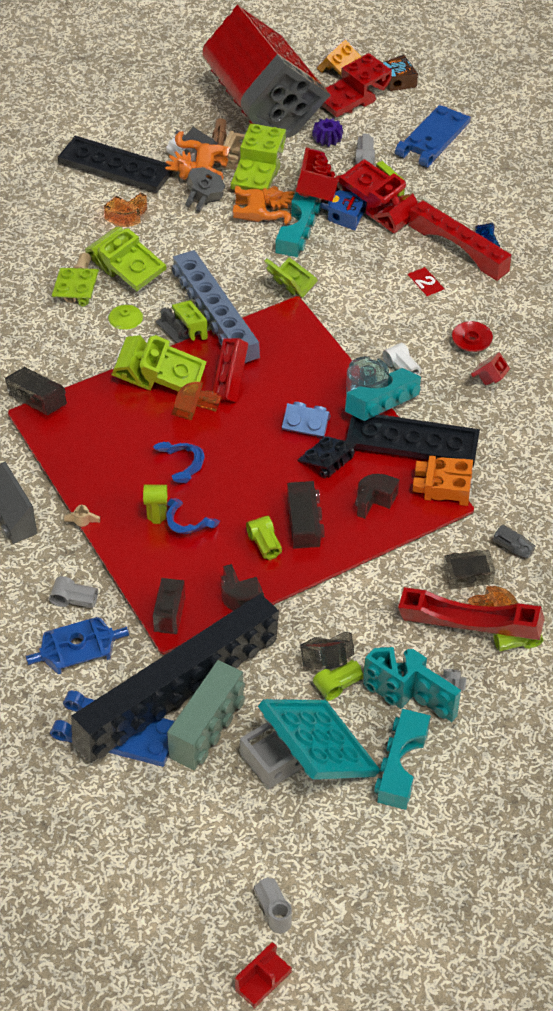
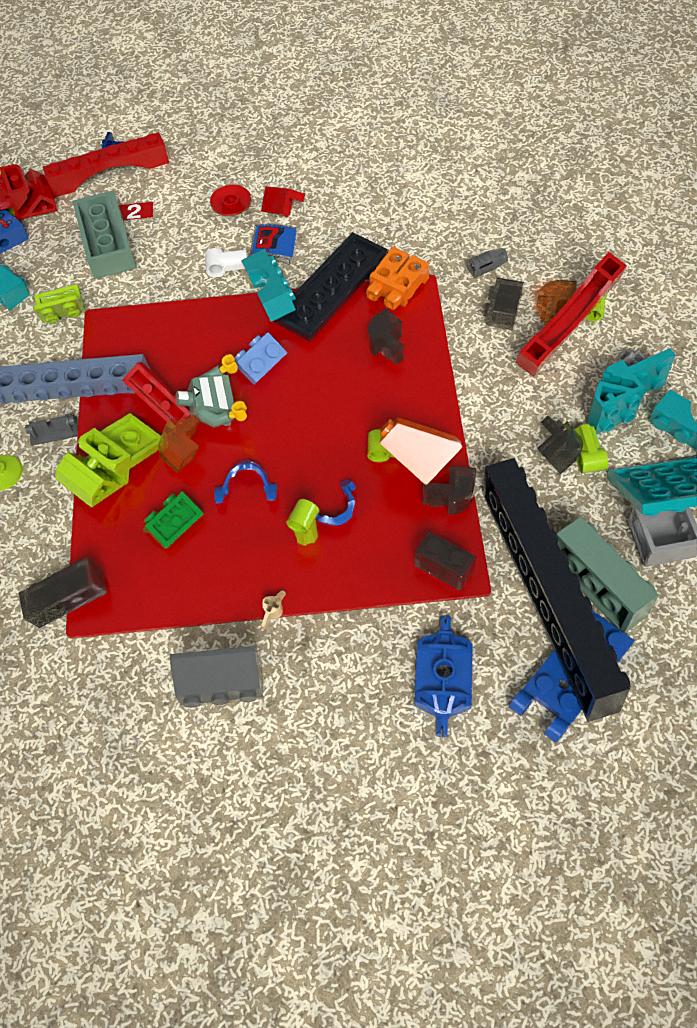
camera: 60 degrees left, 10 degrees up
(67, 592) = (369, 660): light grey piece -> none
(125, 427) = (173, 520): none -> green bracket
(191, 318) = (60, 404): lime hinge -> none
(246, 401) = (211, 396): none -> torso
(255, 542) = (419, 447): none -> slope
(304, 514) = (379, 400): clear smoke brick -> none
(329, 455) = (313, 357): black hinge -> none
(367, 373) = (240, 289): clear light blue brick -> none
(377, 271) = (103, 234): none -> sand green brick
(443, 385) = (276, 240): none -> slope

